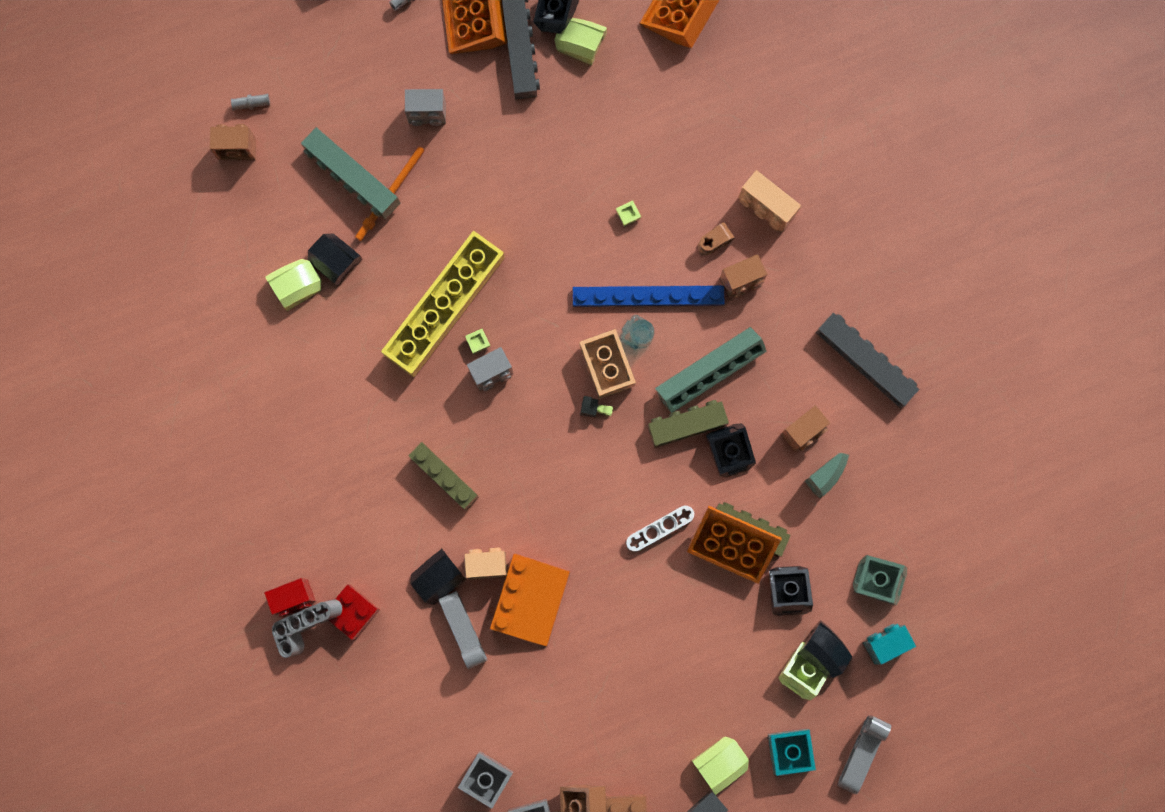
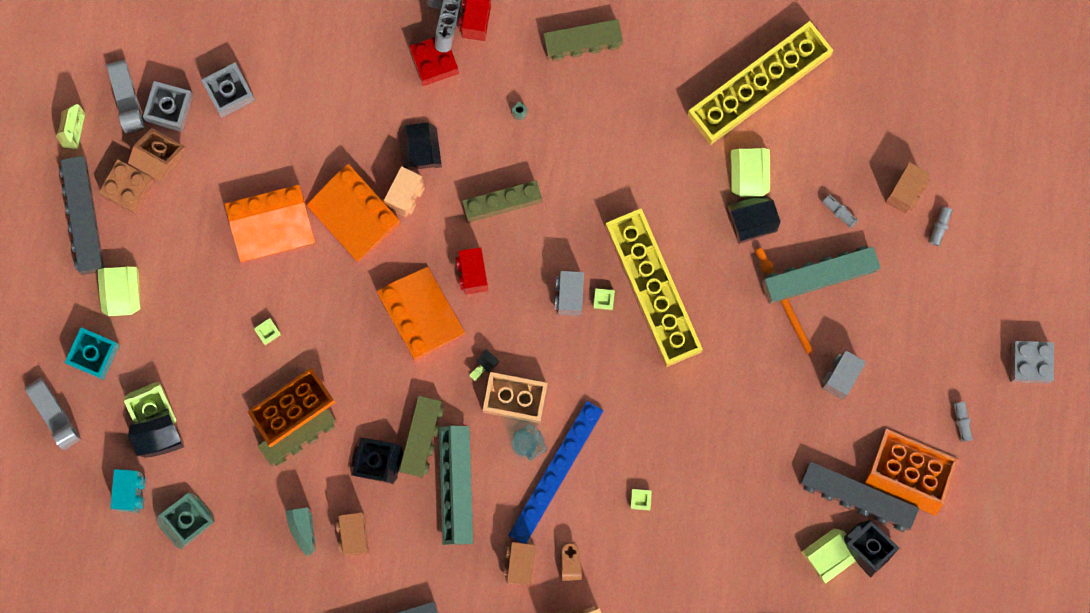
camera: 120 degrees right, 0 degrees up
(210, 317) = (760, 83): none -> light yellow brick
(257, 492) = (583, 39): none -> olive brick
(285, 190) = (840, 211): none -> light grey pin
(358, 513) = (519, 116): none -> sand green hose
(463, 630) = (360, 142): light grey beam -> none
(520, 463) = (473, 271): none -> red brick
(582, 488) = (420, 313): none -> orange slope
(582, 667) = (270, 223): none -> orange slope
(661, 531) = (346, 359): white beam -> none
(677, 611) = (267, 331): none -> yellowish green plate
(790, 590) = (225, 437): black slope -> none

